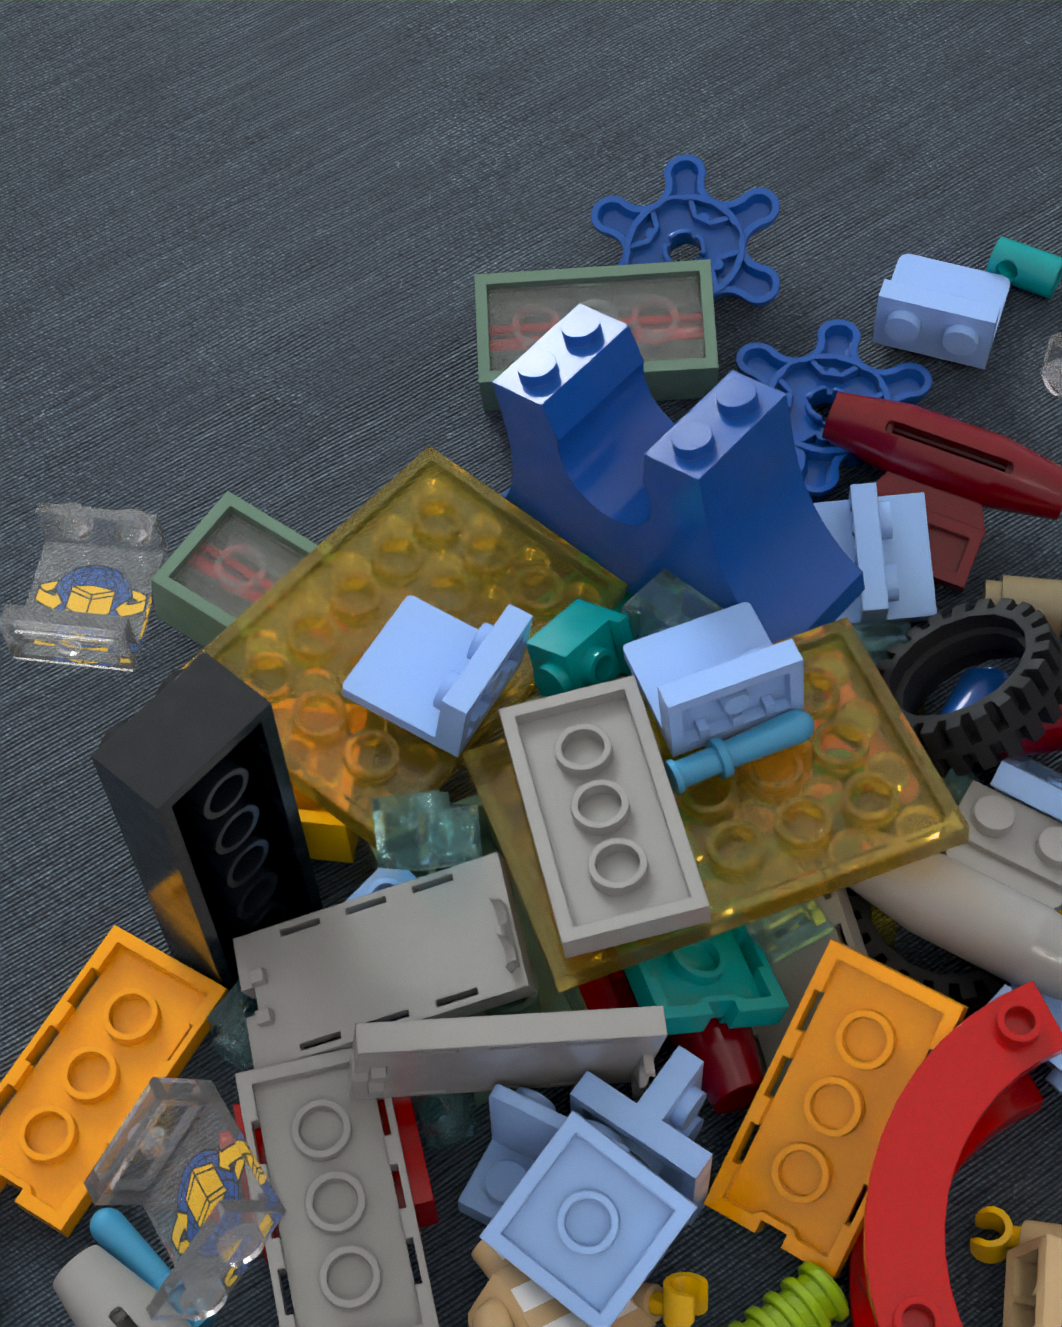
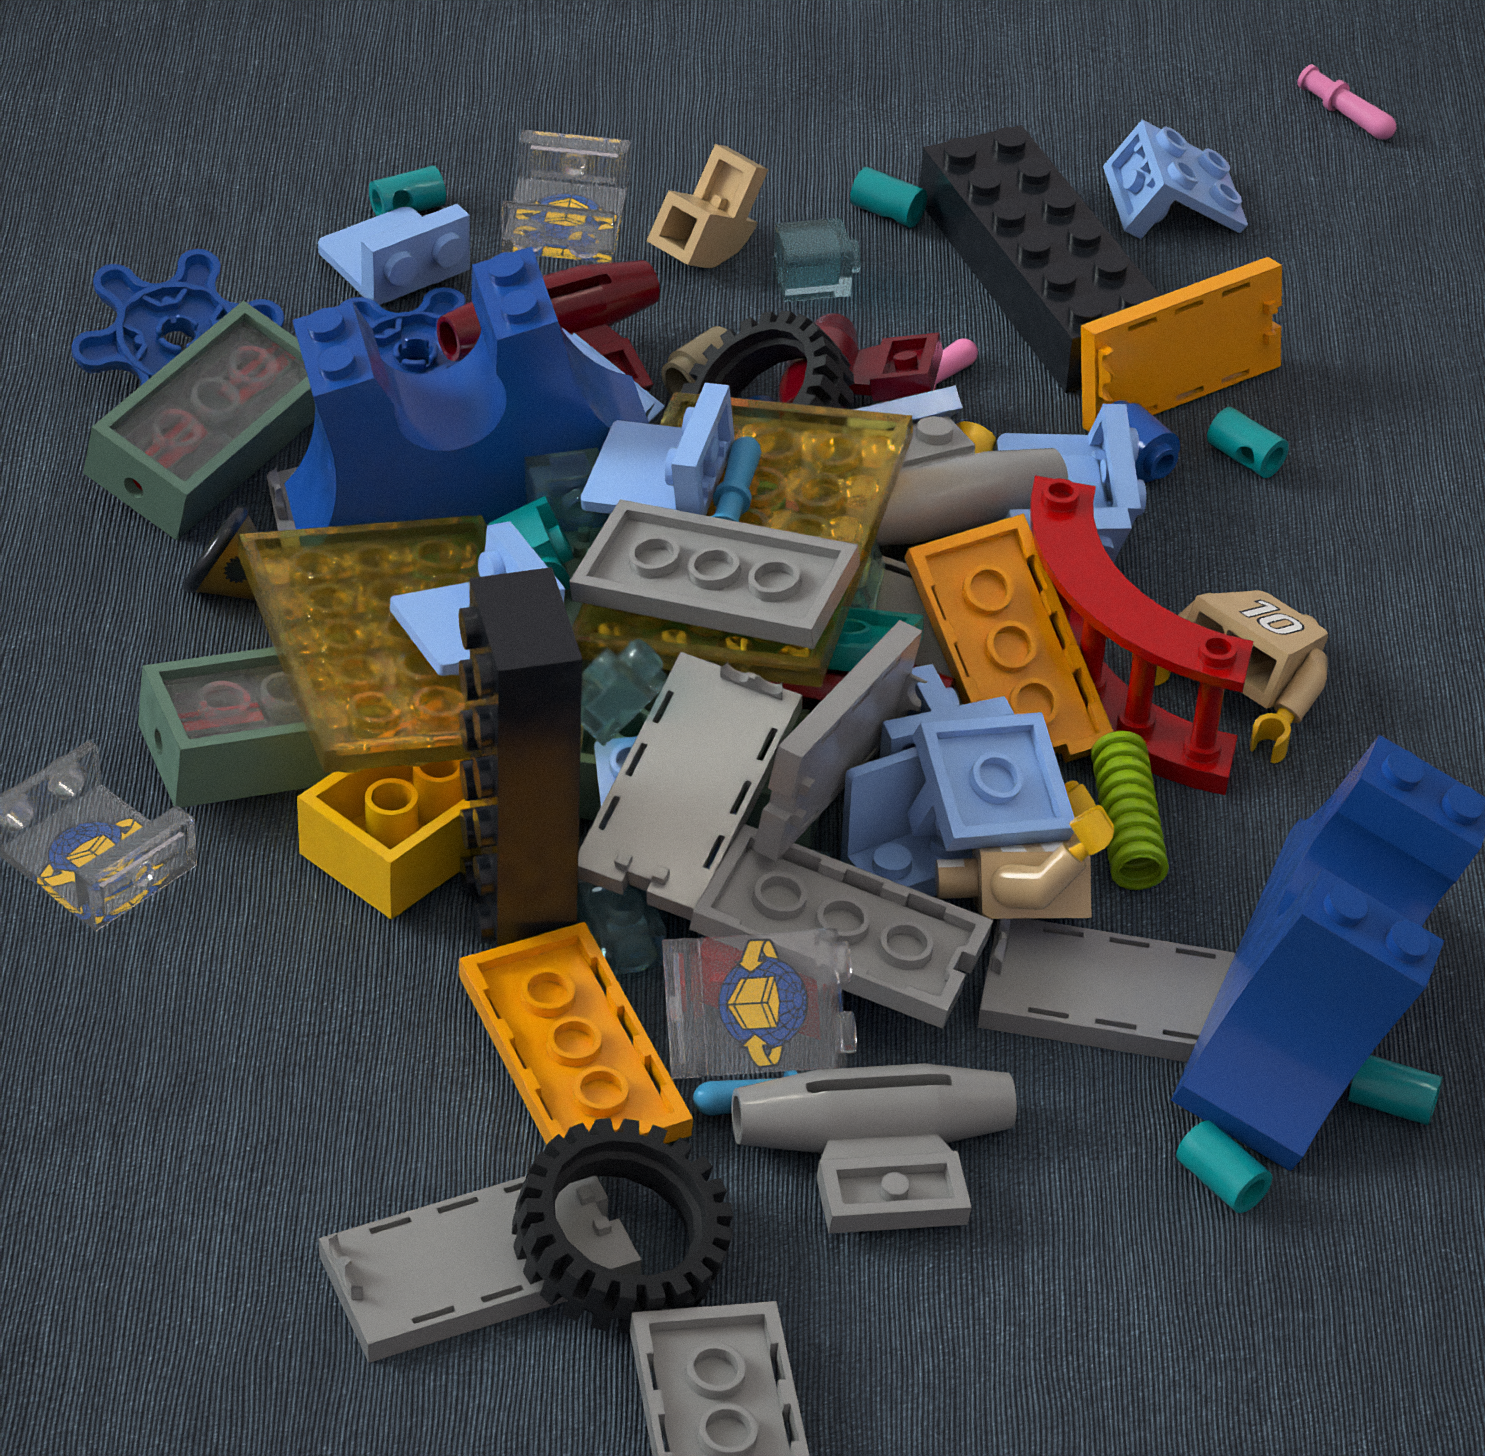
camera: 60 degrees left, 15 degrees down
(470, 446) = (219, 567): none -> hat

